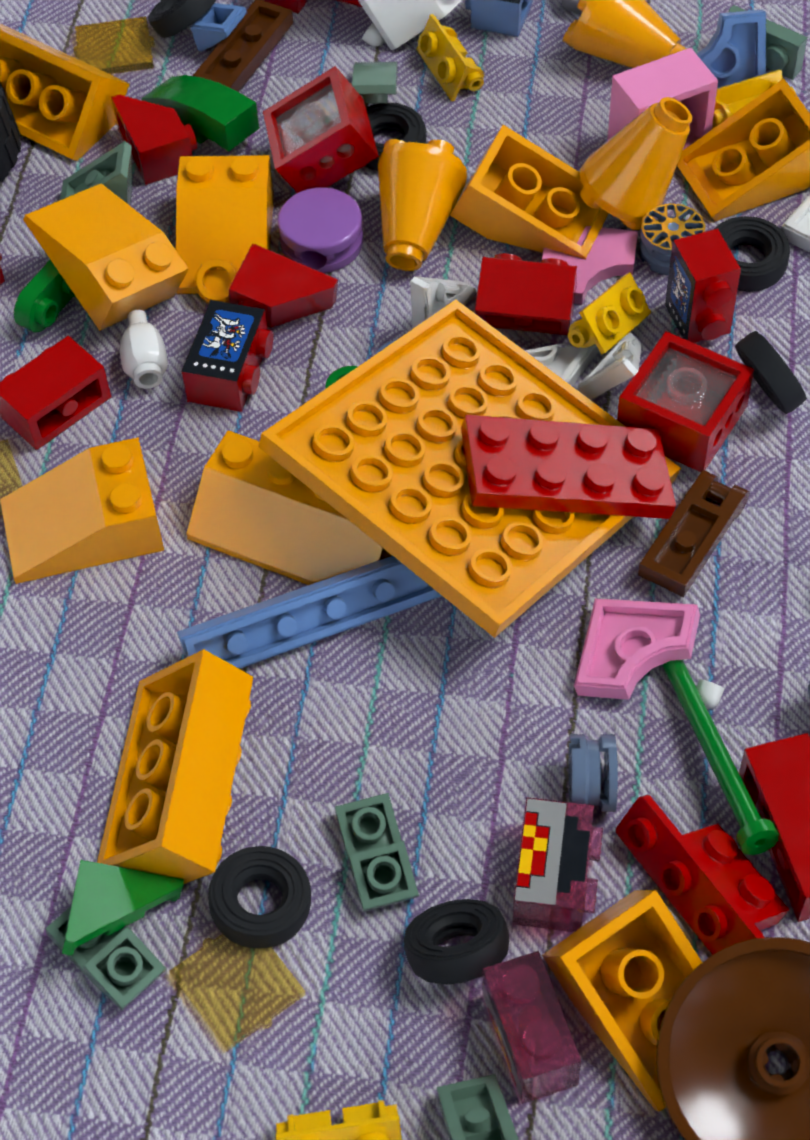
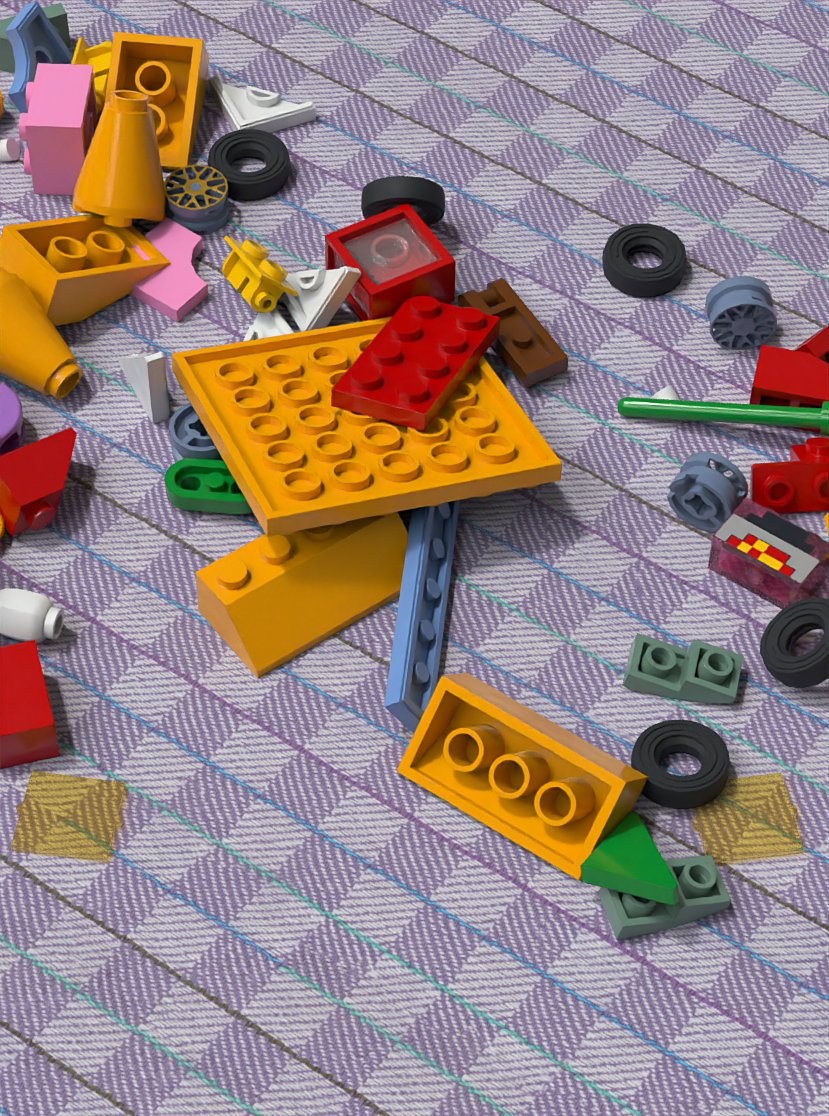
camera: 65 degrees left, 5 degrees down
(82, 514) = (183, 735): light orange slope -> none
(227, 356) = (79, 553): brick -> none
(527, 294) = (190, 312): red brick -> none
(630, 640) = (591, 419): bright pink tile -> none
(702, 286) = (285, 197): red brick -> none

